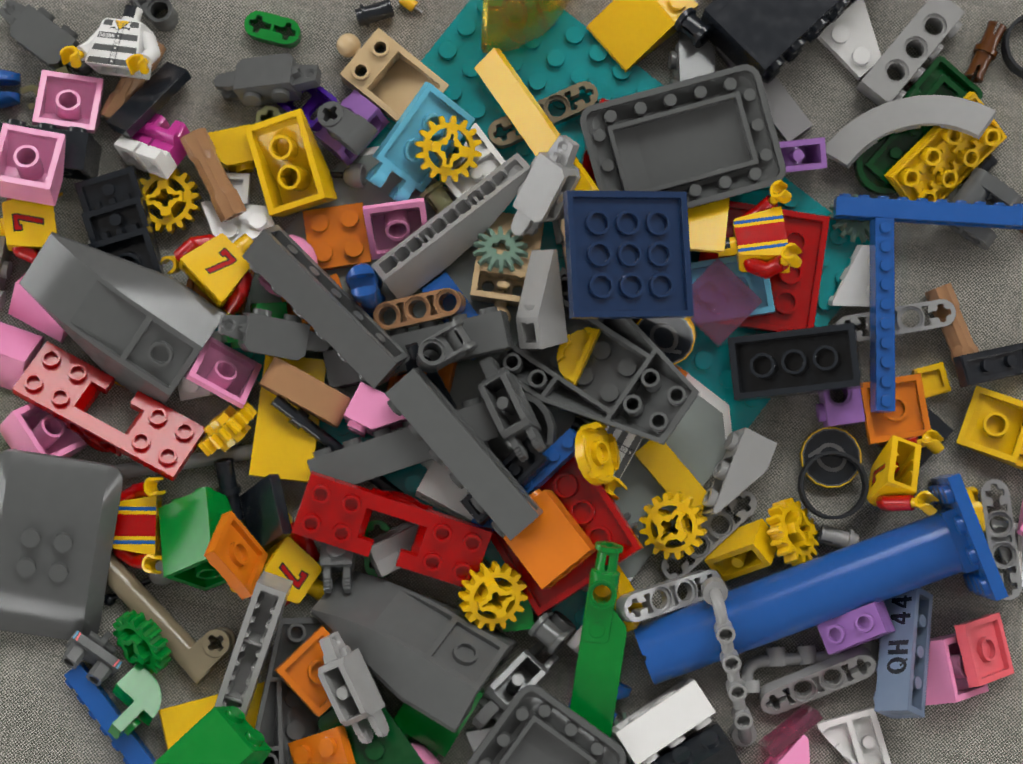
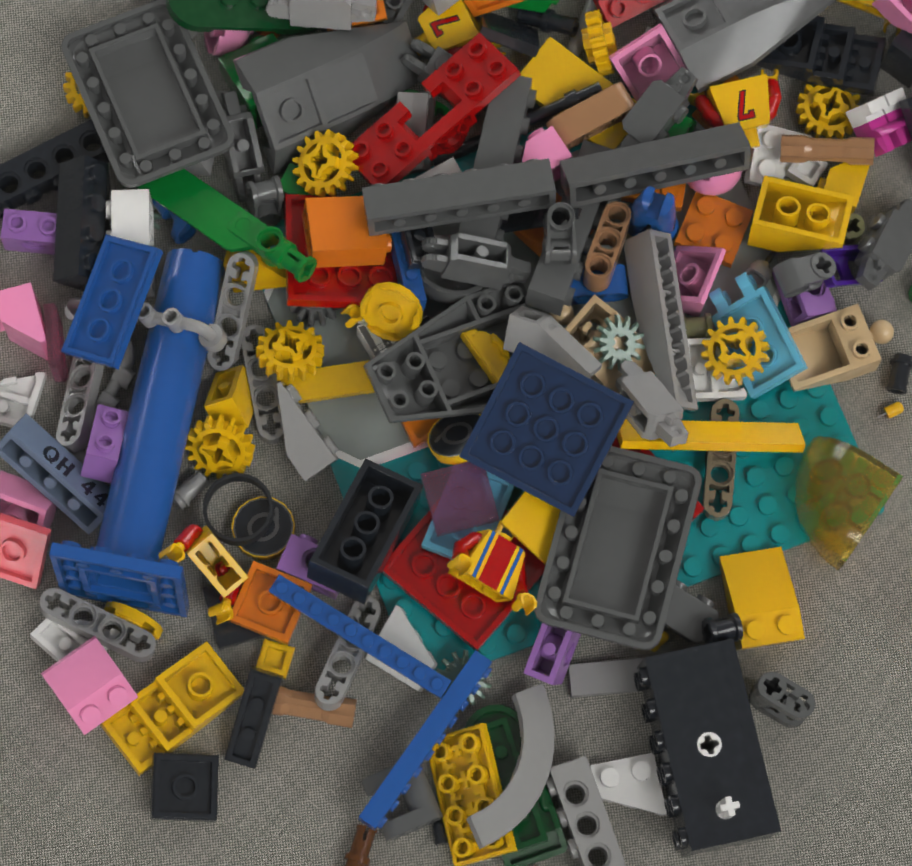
camera: 115 degrees right, 10 degrees down
(738, 697) = (112, 301): none -> blue tile

